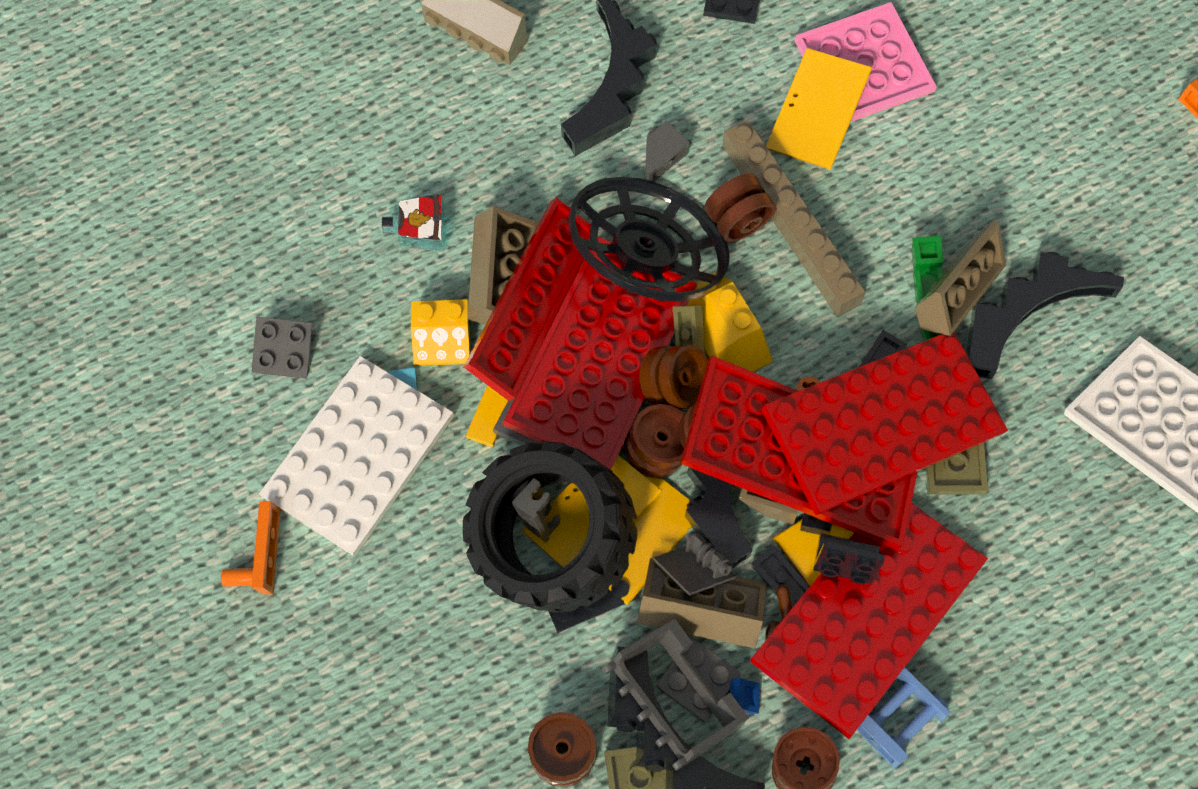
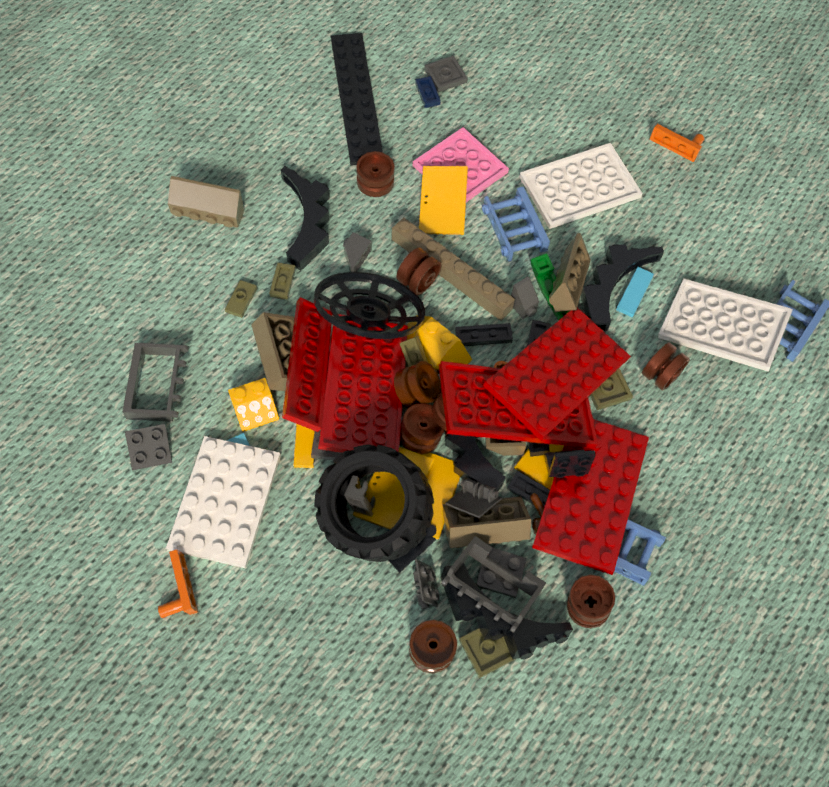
camera: 25 degrees left, 5 degrees down
(306, 223) = (138, 358): none -> dark grey hinge
(418, 223) = (214, 340): torso -> none
(477, 172) = (241, 298): none -> olive plate
(543, 164) = (282, 281): none -> olive plate
(585, 662) = (424, 578): none -> dark grey hinge
(732, 40) = (375, 174): none -> copper wheel
(746, 694) = (535, 568): blue plate -> none
(803, 330) = (484, 334): none -> black plate
(881, 295) = (525, 298): none -> dark grey slope
(936, 164) = (526, 213): none -> medium blue fence
(1038, 143) = (580, 185): none -> white plate
(1053, 462) = (665, 366): none -> copper wheel
(1057, 333) = (635, 292): none -> medium azure tile

